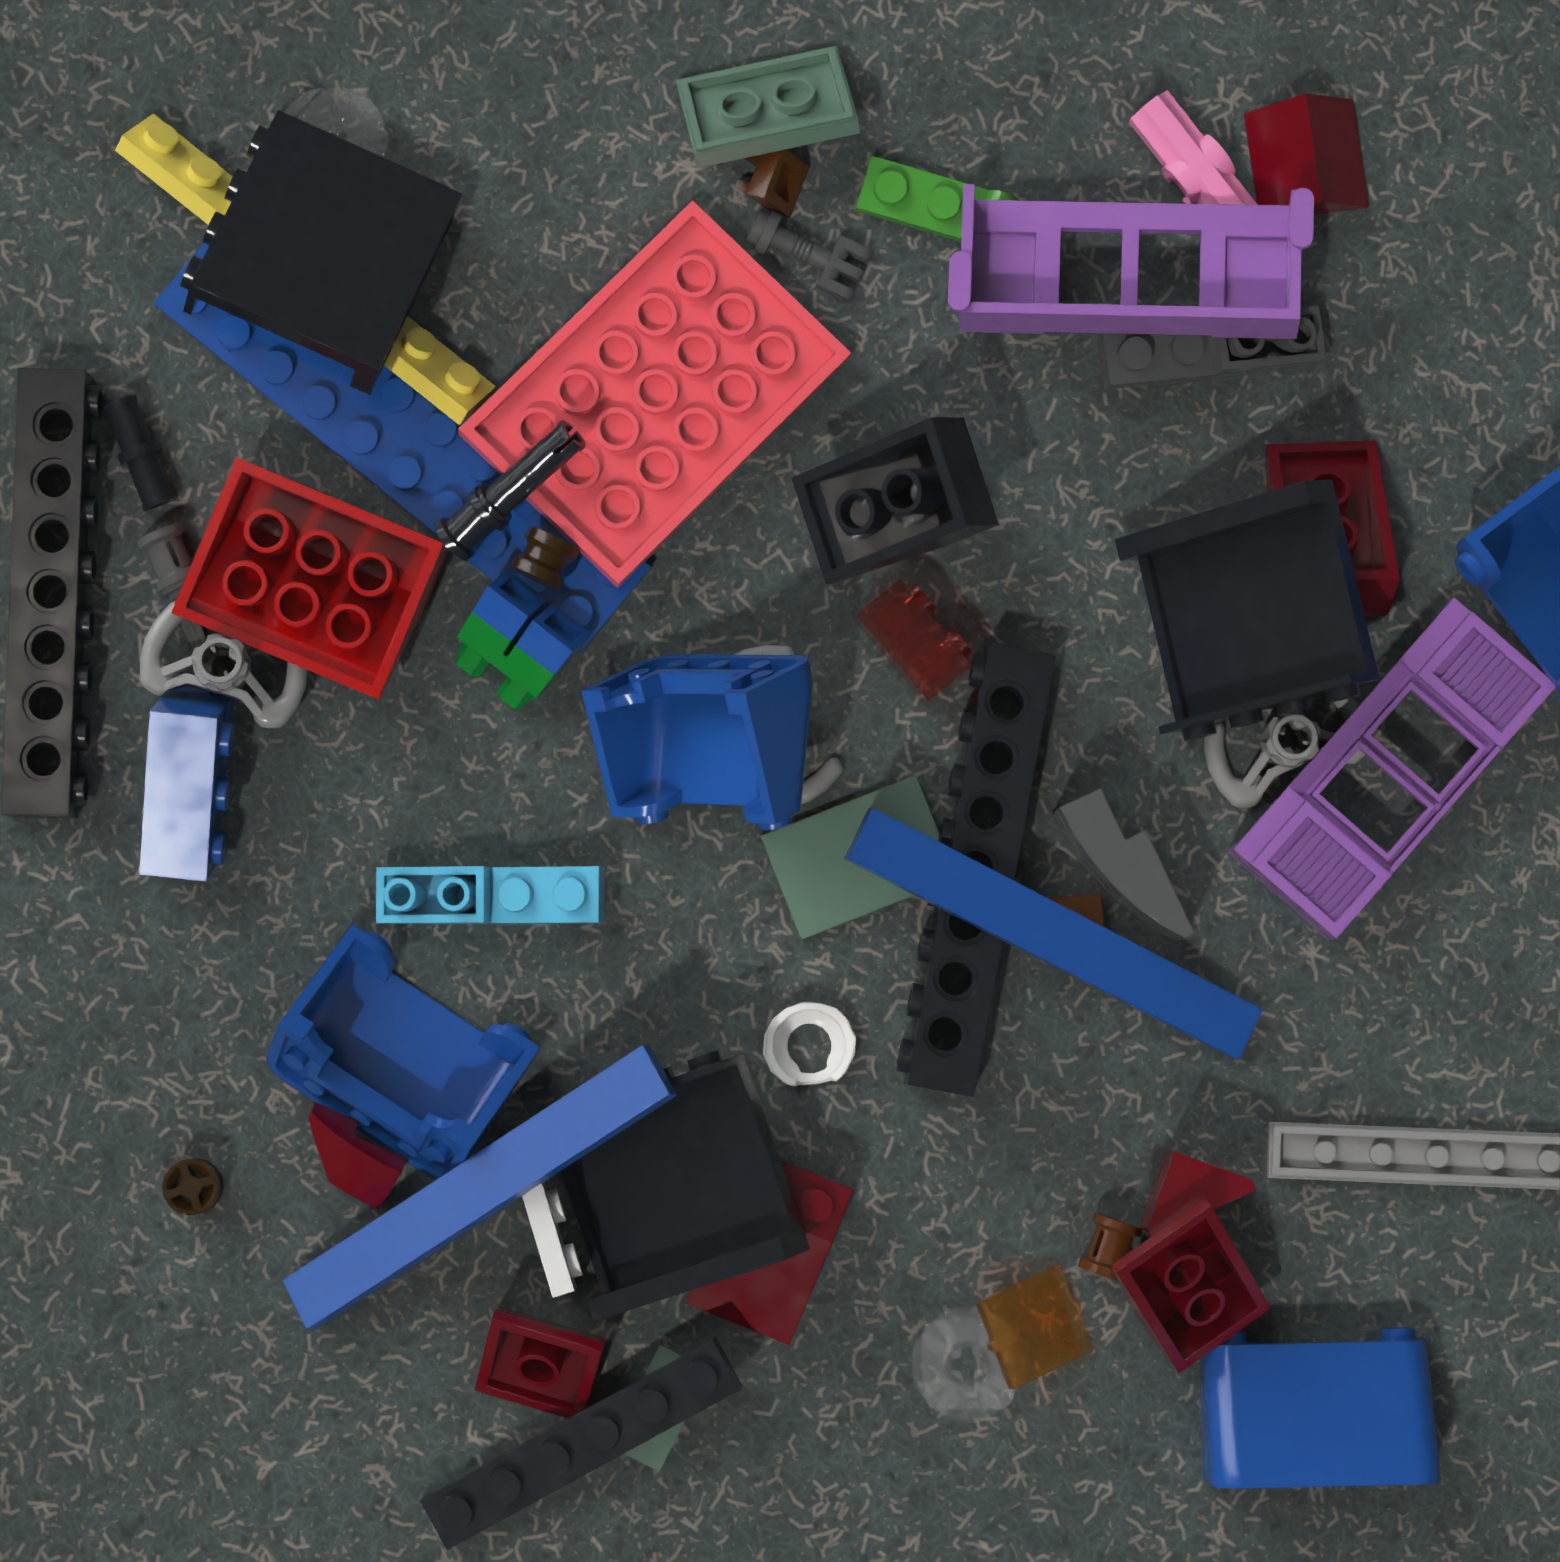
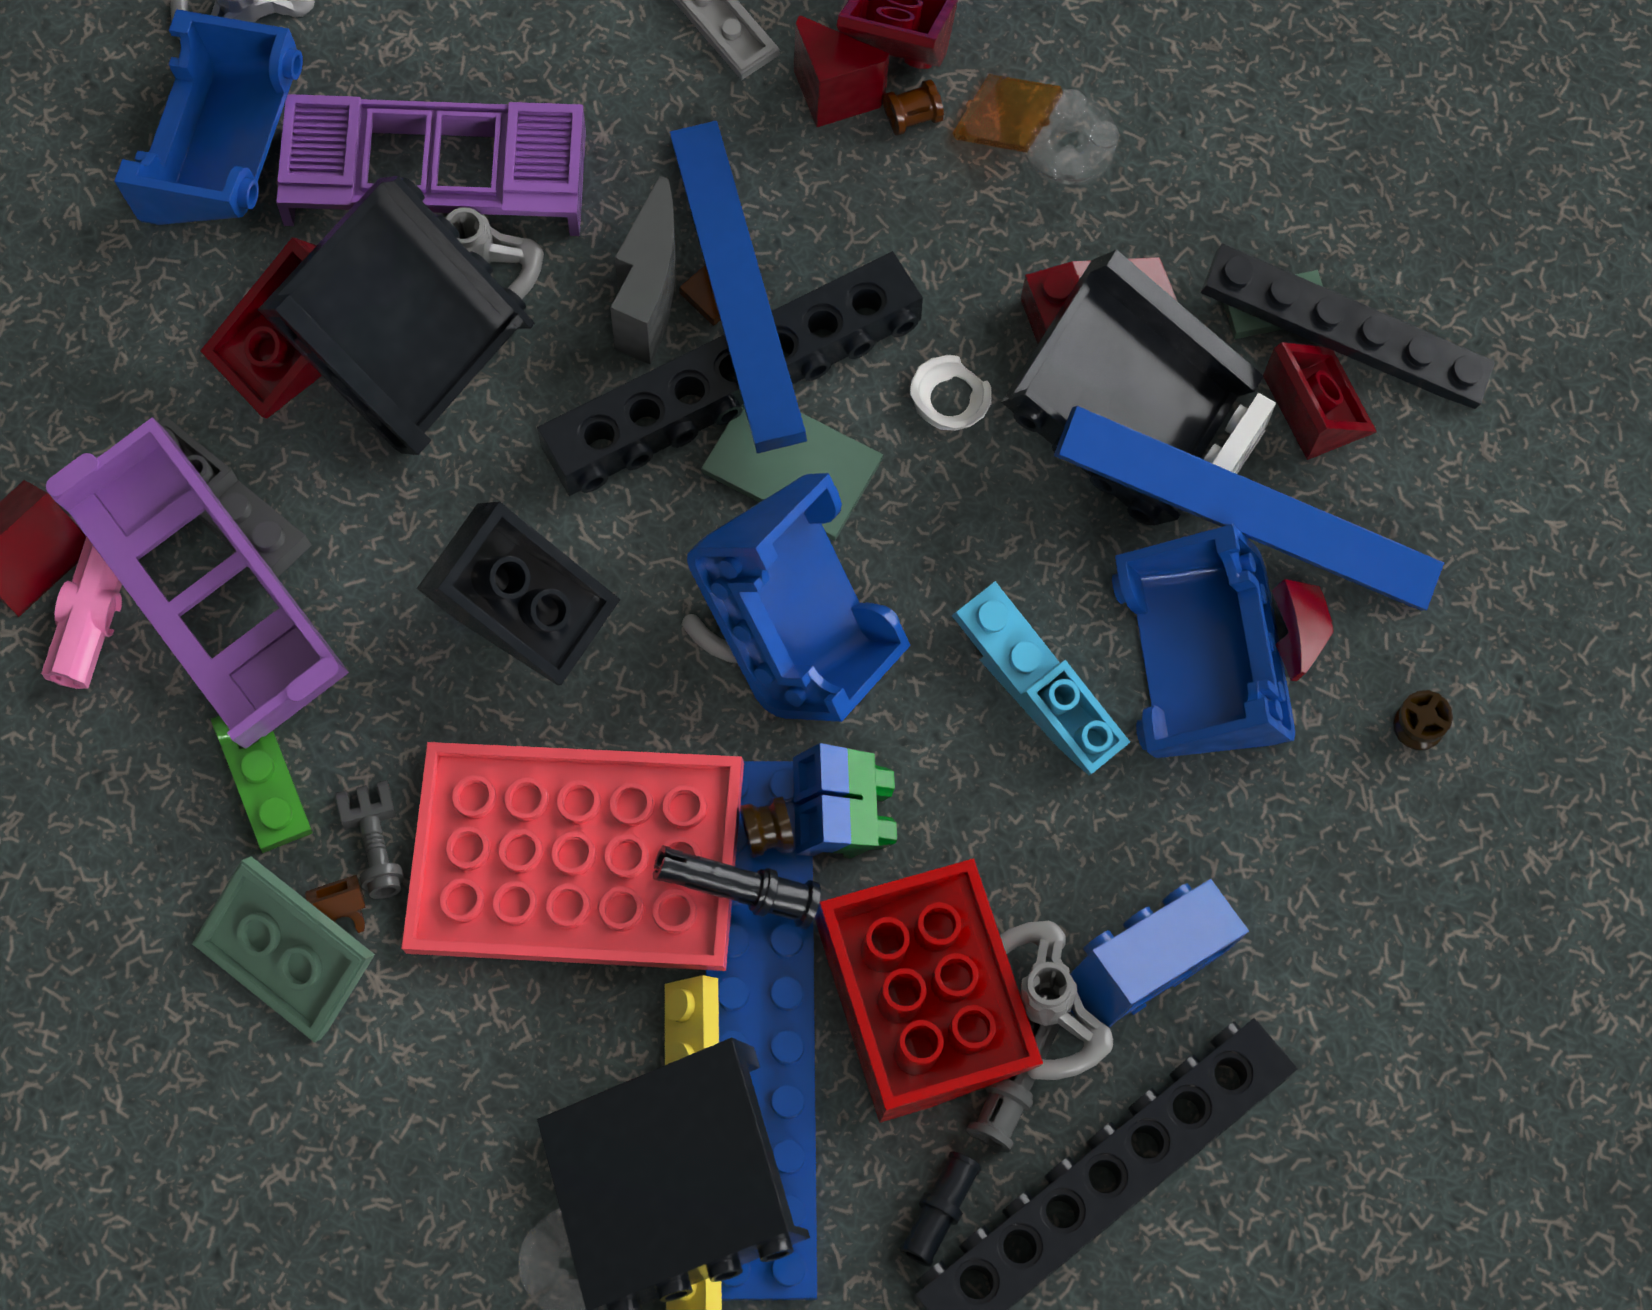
camera: 130 degrees left, 15 degrees down
(914, 642) = (608, 529): clear red brick -> none

